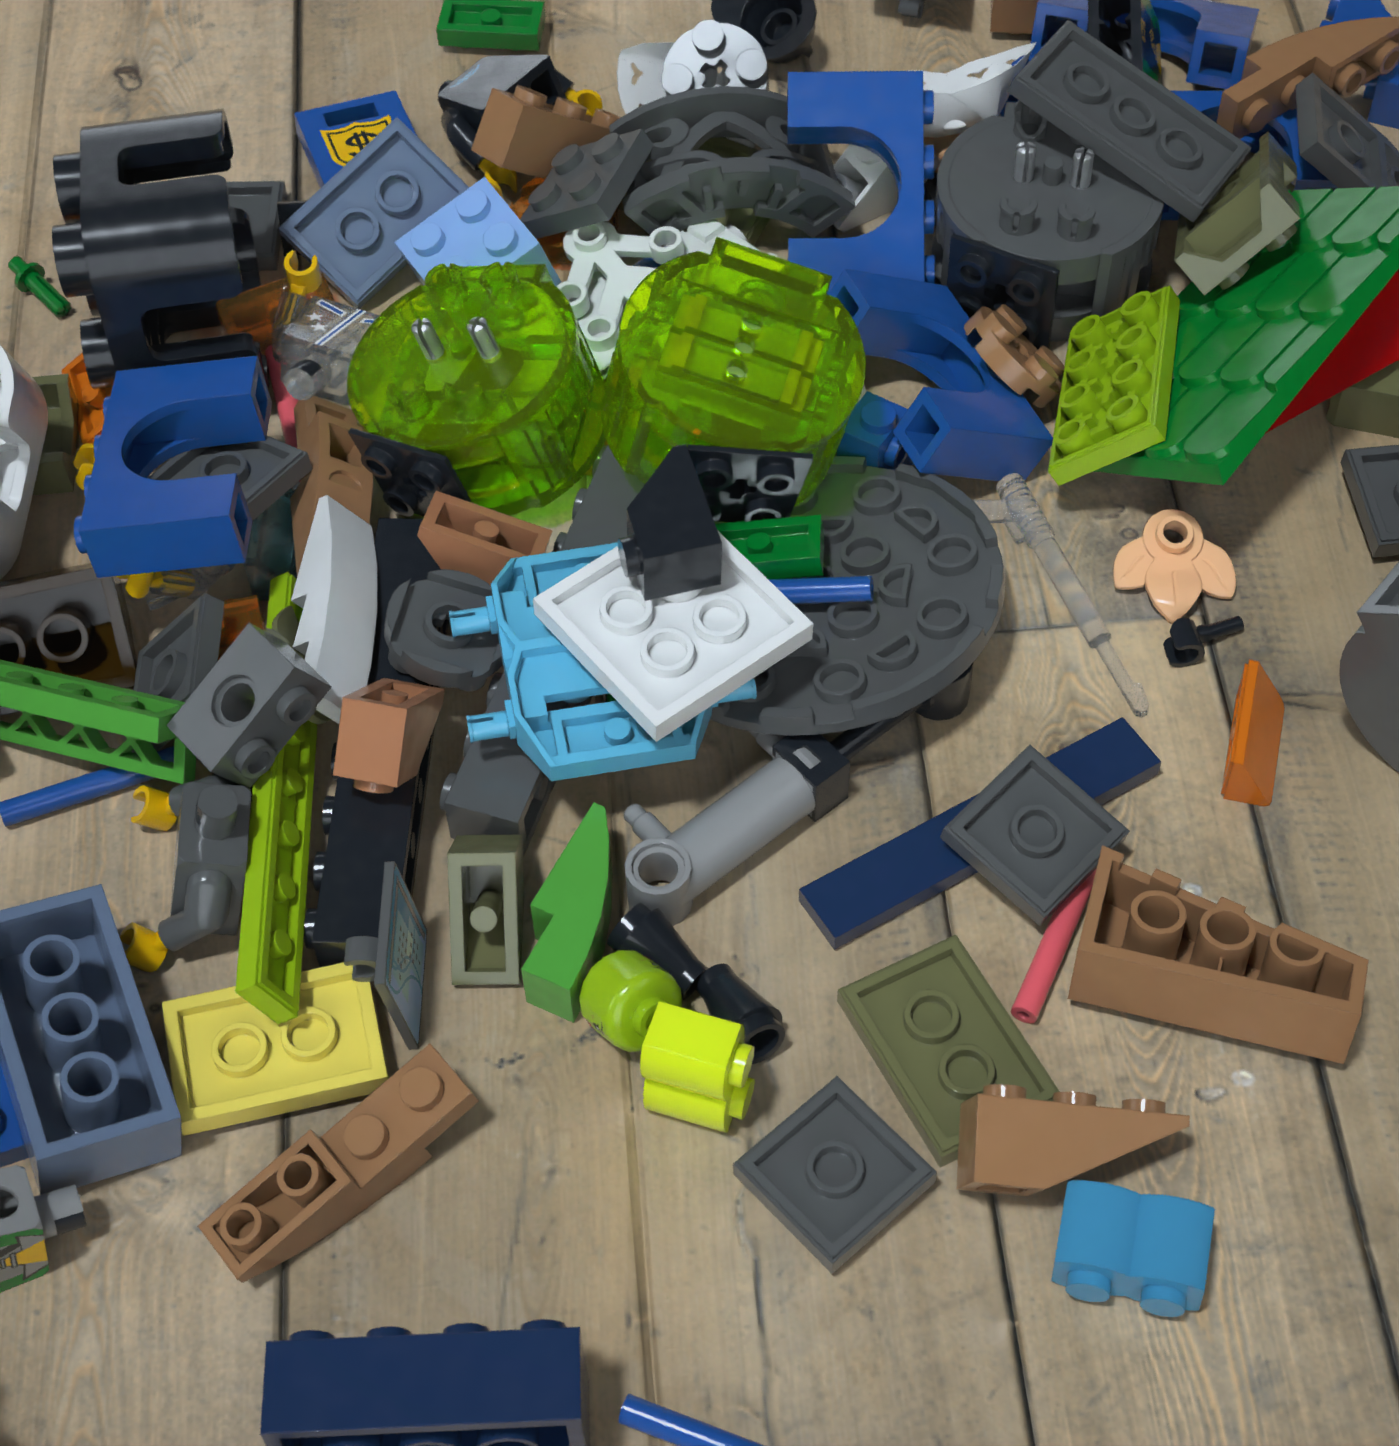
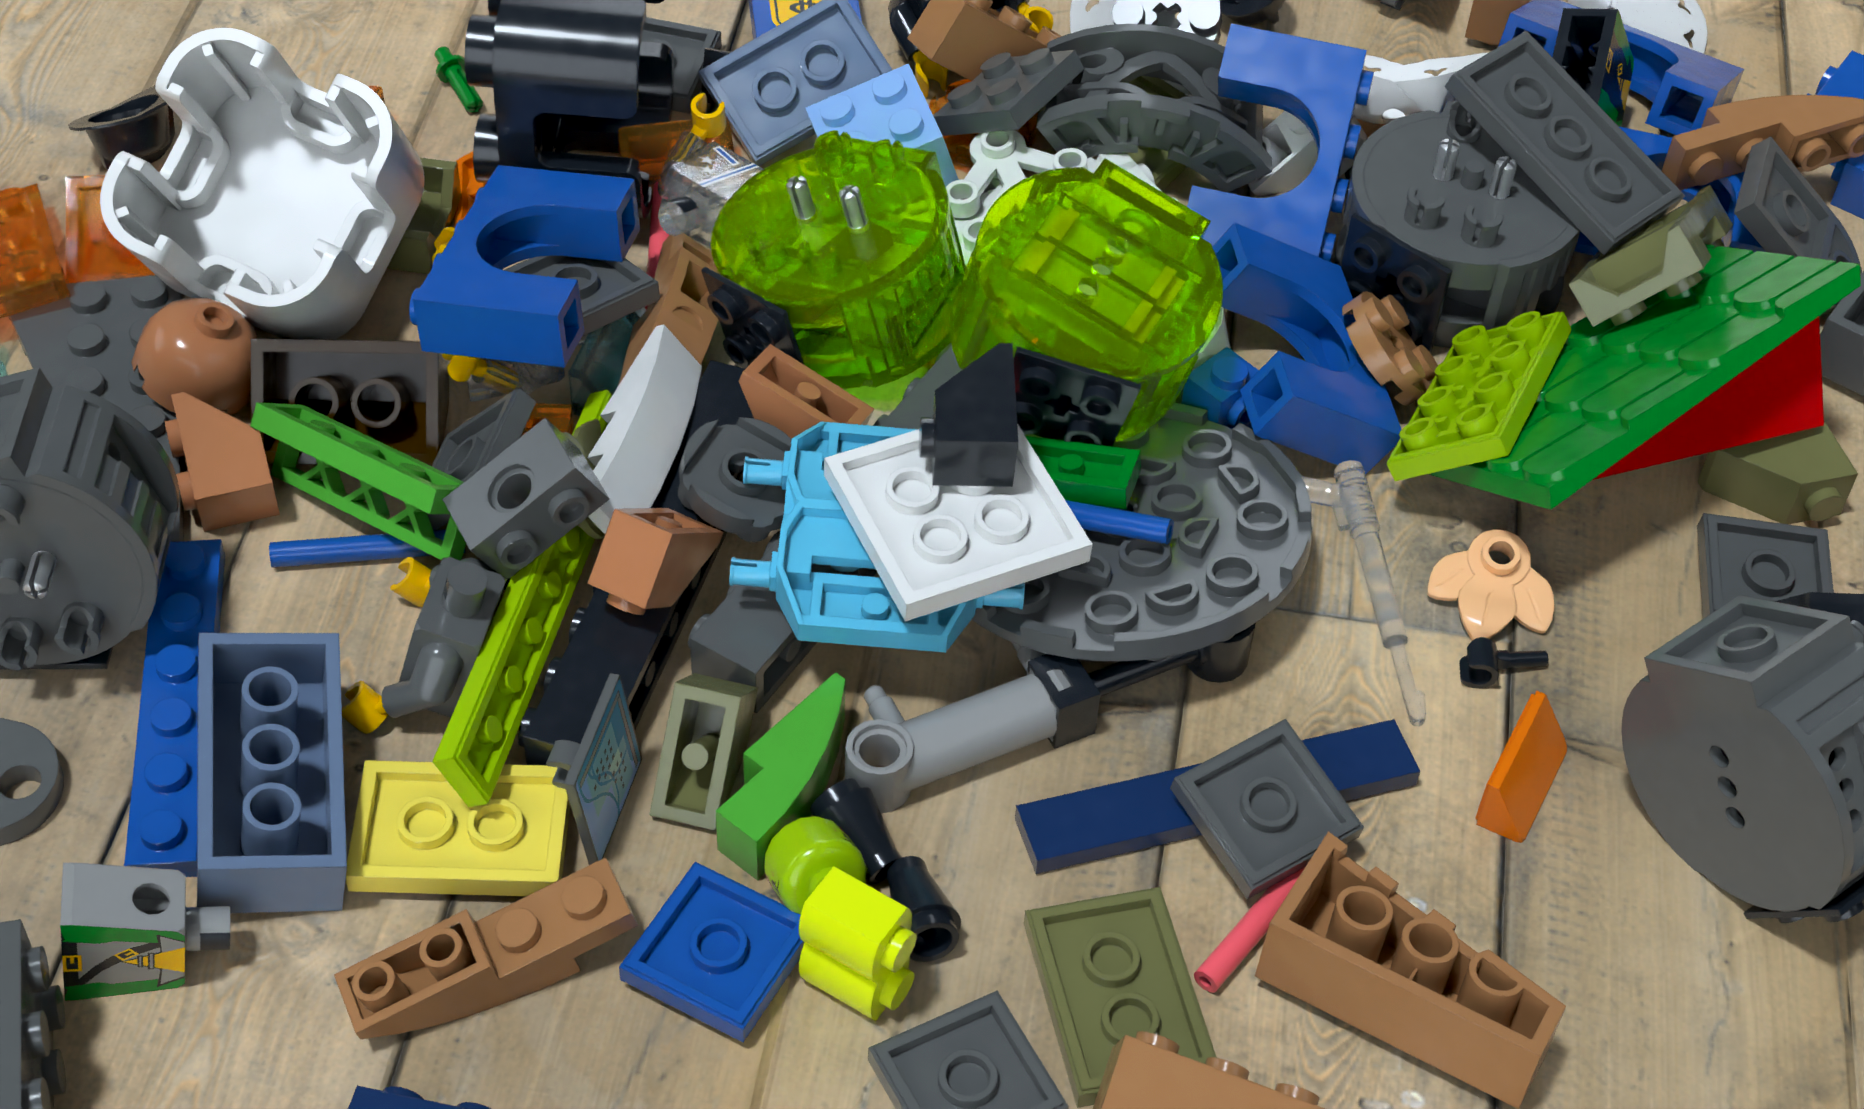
camera: 10 degrees right, 5 degrees down
(559, 1105) = (716, 952): none -> blue plate

